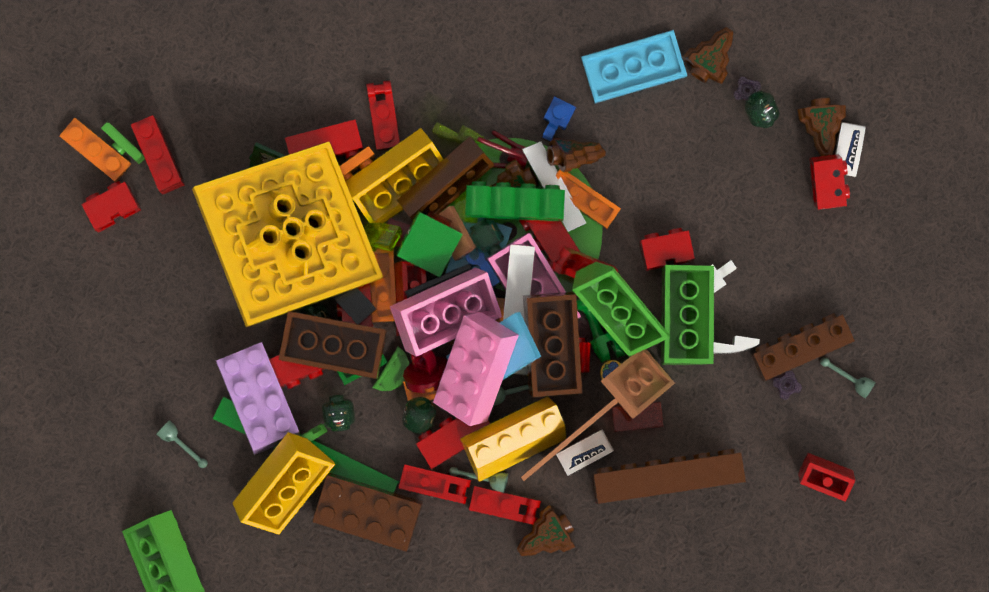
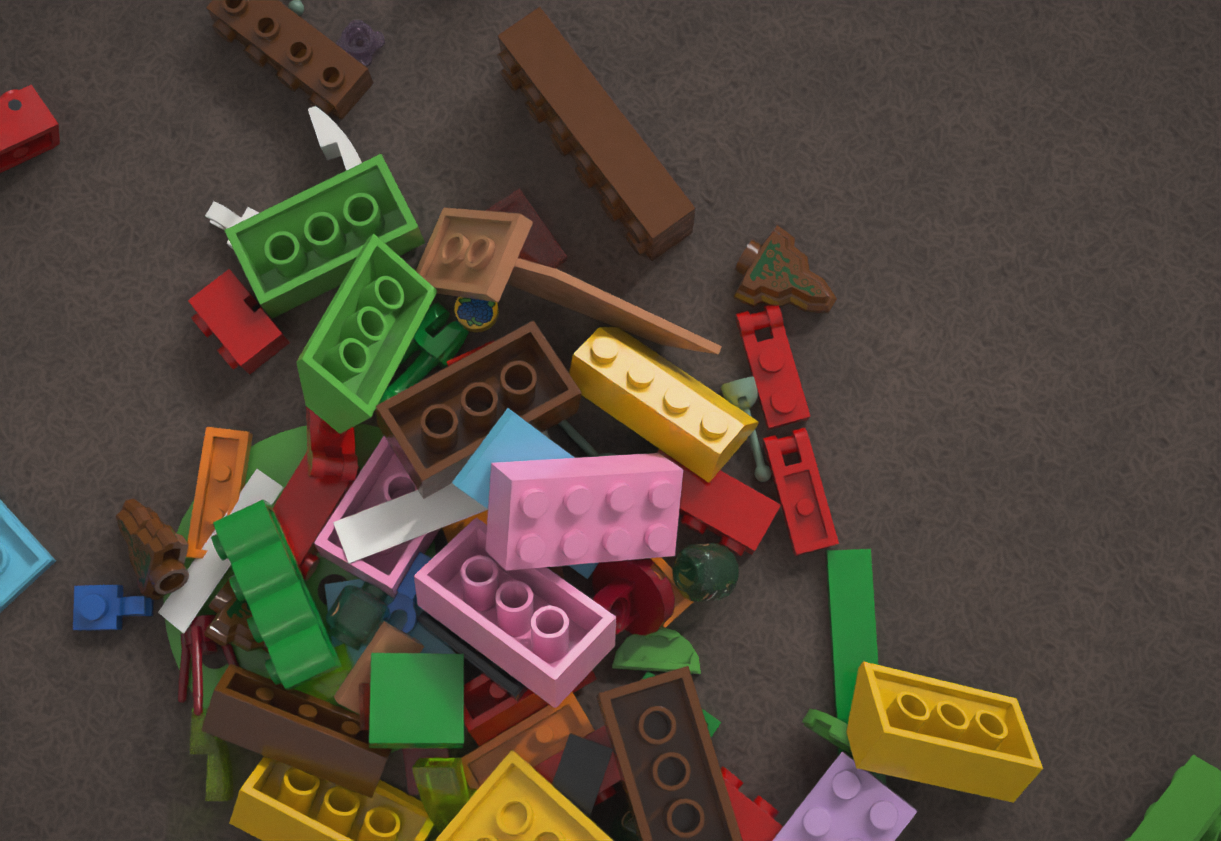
camera: 115 degrees left, 5 degrees down
(338, 413) = (772, 705): clear green head -> none
(367, 511) = (904, 570): reddish brown brick -> none
(585, 452) = (624, 280): white slope -> none

